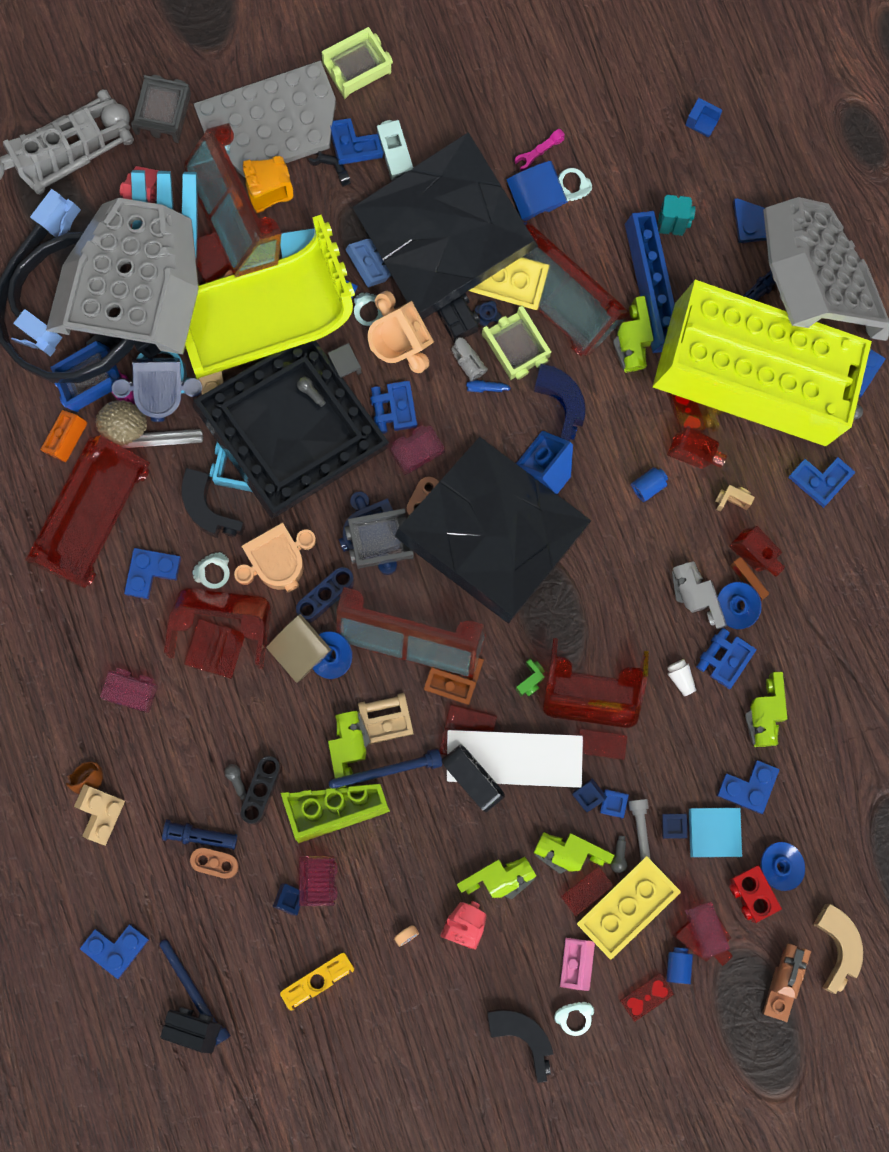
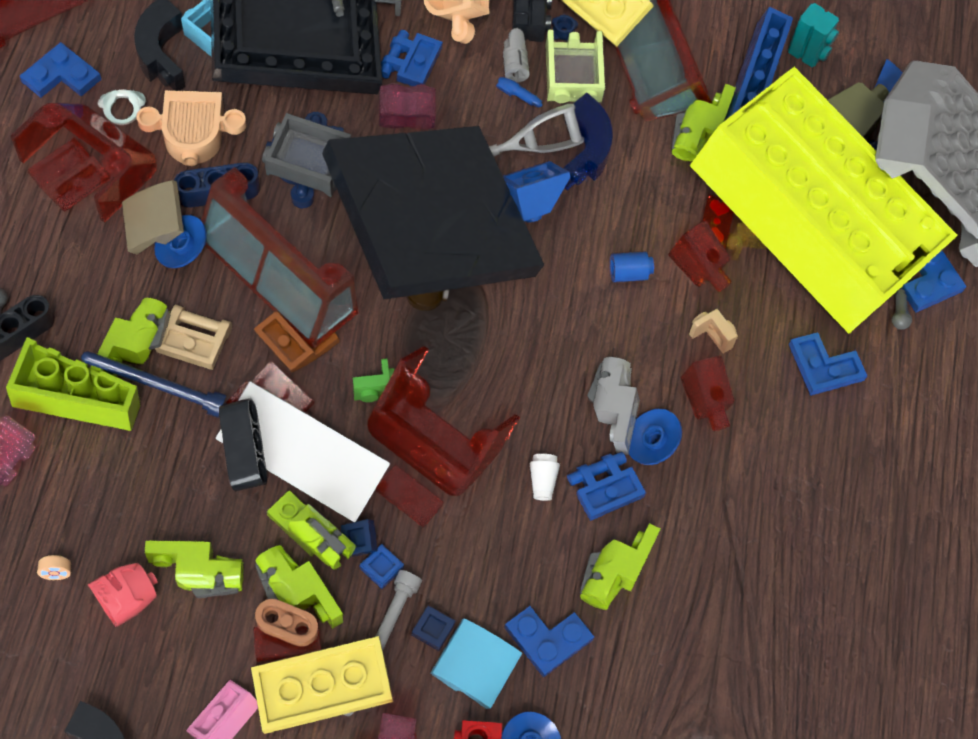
camera: 25 degrees right, 15 degrees down
(517, 421) = (529, 136): none -> light grey piece
(555, 809) = (311, 530): none -> lime plate
(582, 882) = (288, 621): none -> nougat plate
(619, 862) = (344, 632): dark grey piece -> none
(739, 260) = (861, 106): none -> olive torso
(747, 576) = (681, 409): dark orange tile -> none

